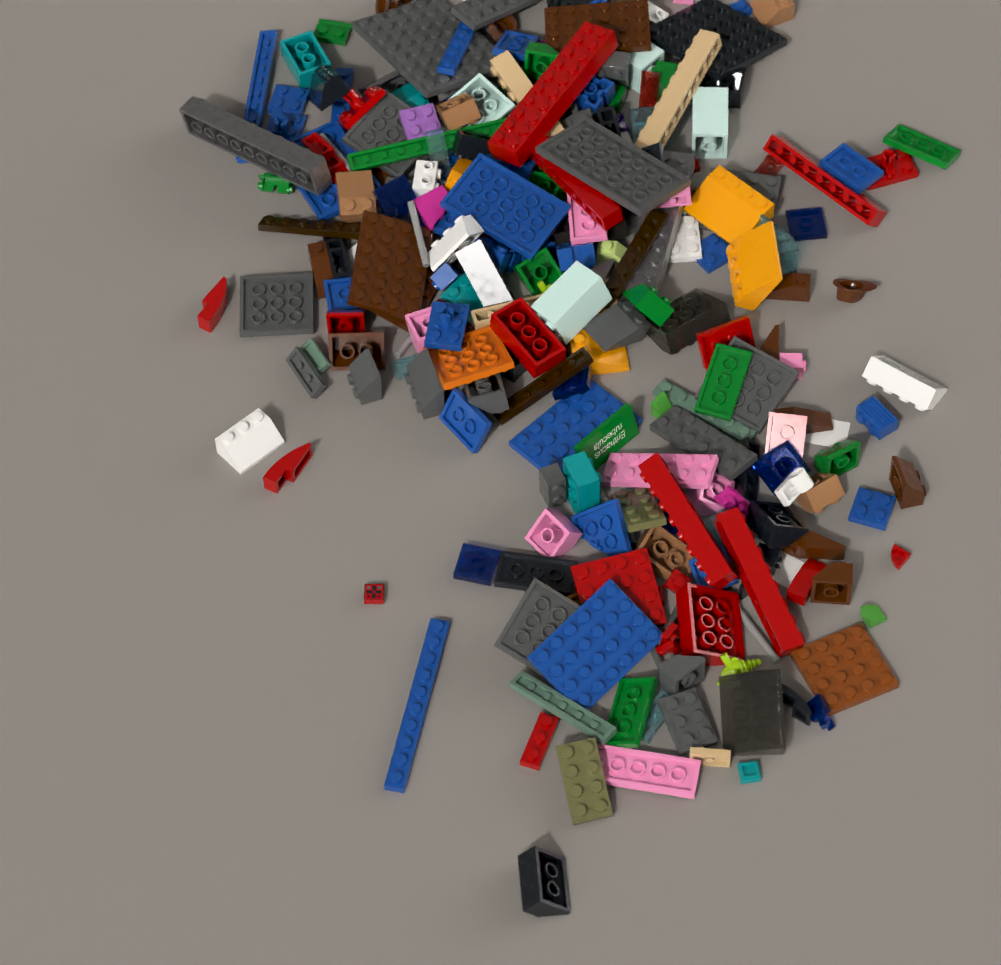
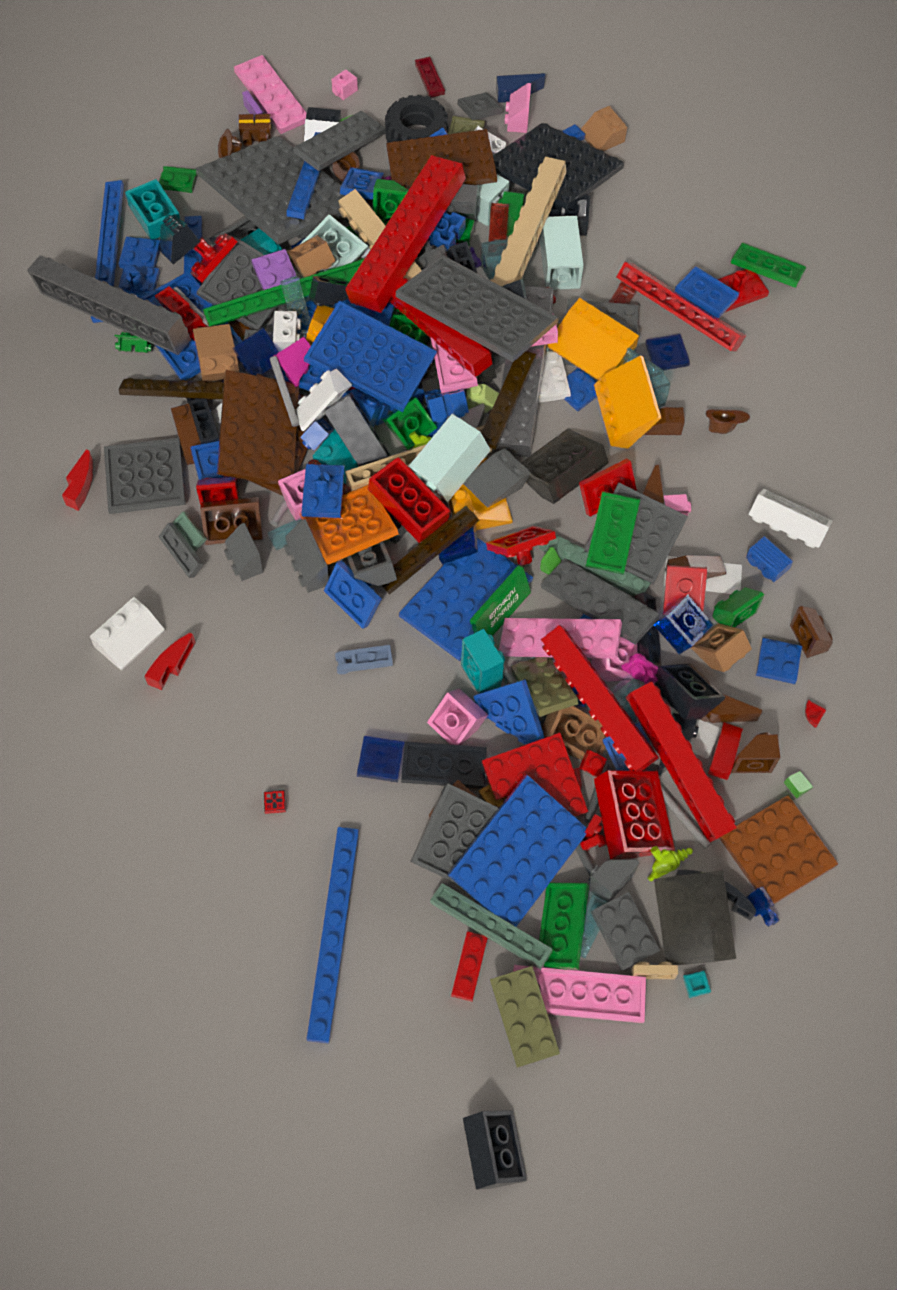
camera: 10 degrees left, 10 degrees up
(470, 479) = (364, 659): none -> sand blue plate
(552, 485) = (451, 662): dark grey brick -> none
(633, 387) = (521, 543): none -> red plate
(649, 303) = (528, 452): green slope -> none
(793, 486) = (704, 643): white plate -> none

